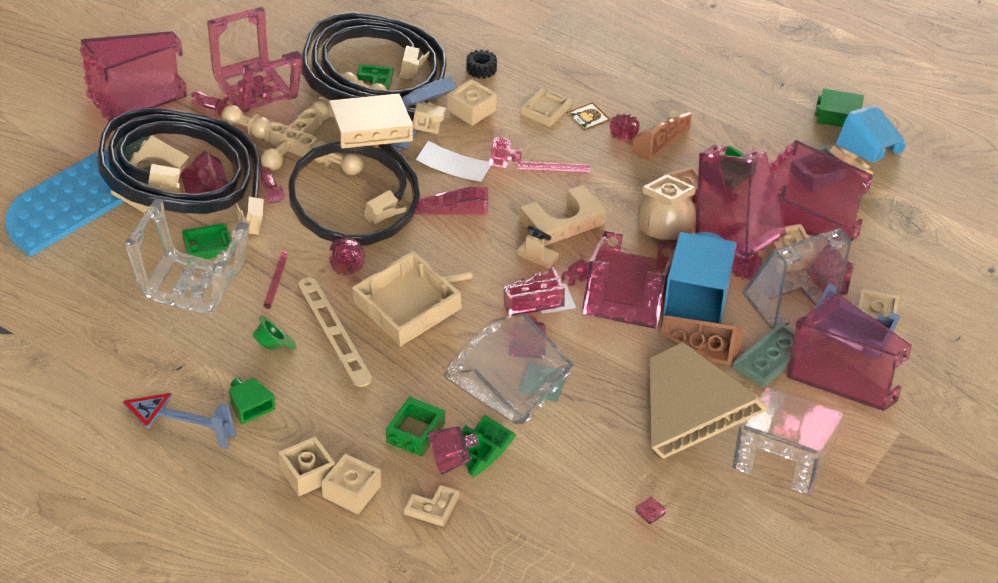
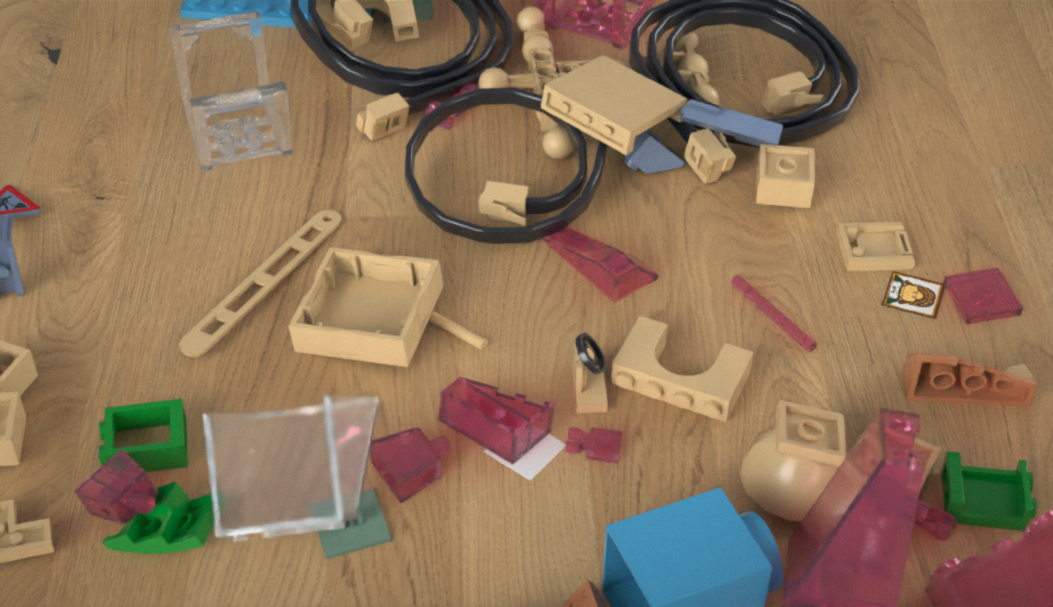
camera: 55 degrees right, 0 degrees up
(204, 174) = (417, 51): clear pink slope -> none
(208, 240) = (323, 115): green container -> none
(250, 399) = (77, 272): green torso -> none
(271, 336) = (202, 232): green piece -> none
(275, 280) = (308, 191): clear pink bar -> none
(347, 256) = (394, 221): clear pink cylinder -> none
(376, 74) = (737, 86): green plate -> none
(453, 163) = (670, 222): white sticker -> none
(481, 64) = (873, 151): black tyre -> none
(501, 153) = (728, 249): clear pink brick -> none
(614, 95) = (982, 295): none -> clear pink tile
(624, 127) = (929, 334): clear pink gear -> none
(626, 284) = (602, 476): clear pink windscreen -> none

